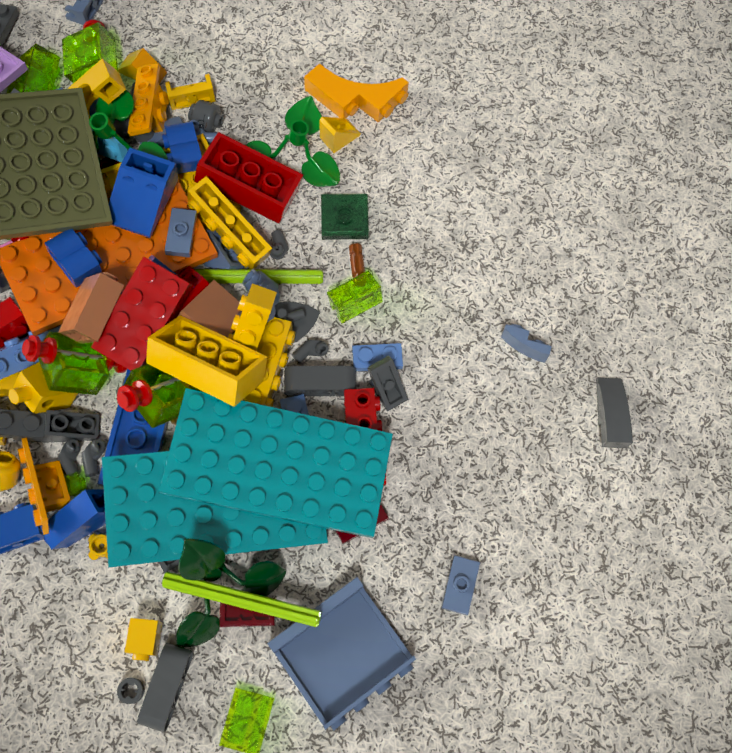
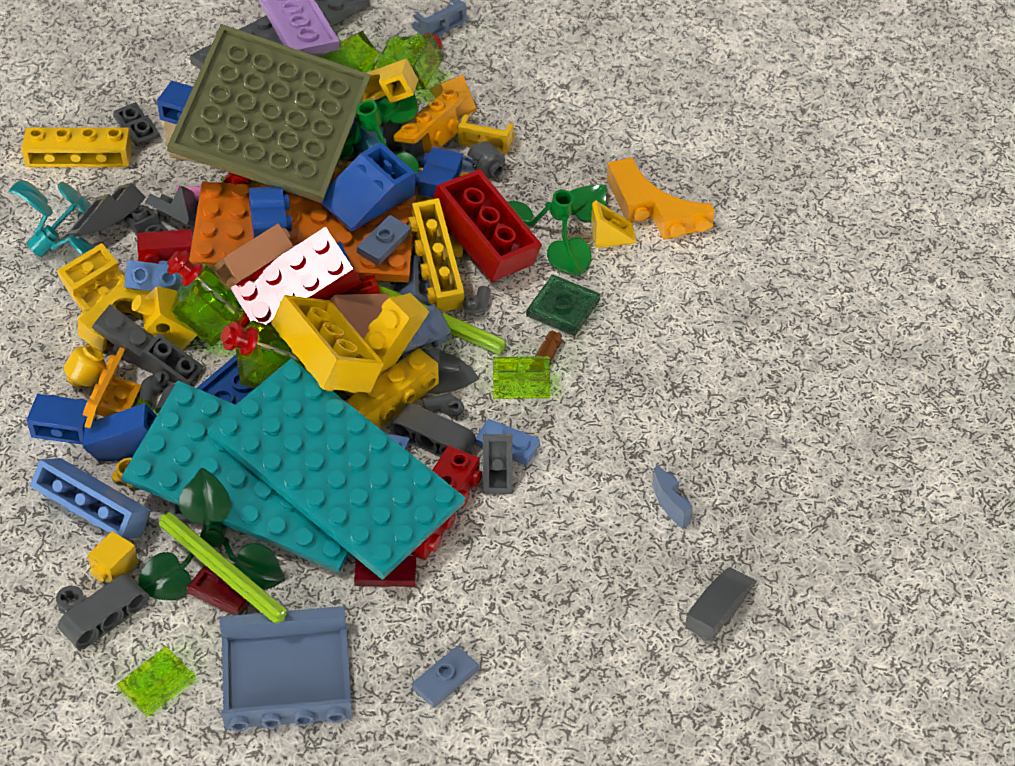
camera: 35 degrees right, 20 degrees down
(87, 593) = (90, 498): none -> medium blue brick

